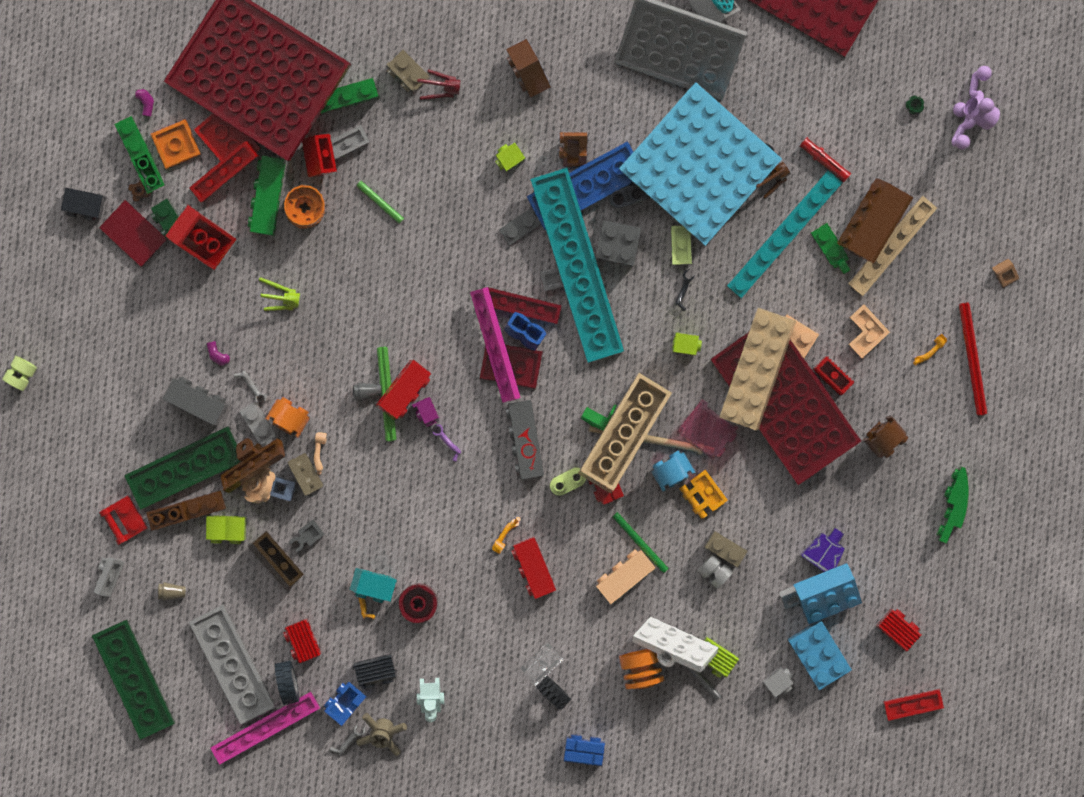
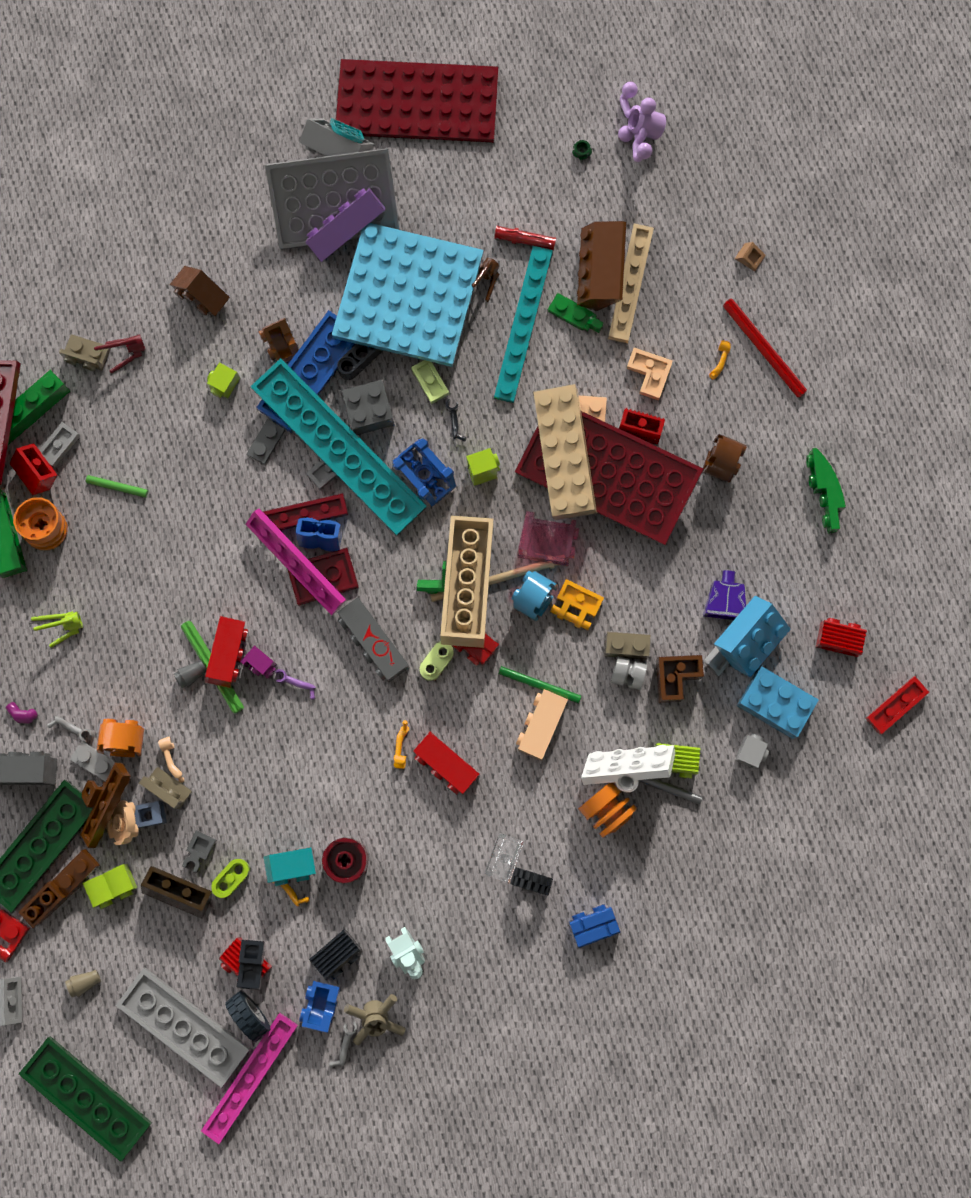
camera: 30 degrees left, 10 degrees down
(307, 646) = (251, 964): none -> black slope
(322, 570) = (230, 877): none -> lime plate
(646, 317) = (432, 464): none -> blue piece
(678, 75) = (345, 224): none -> medium lavender brick
(747, 589) = (674, 670): none -> reddish brown brick

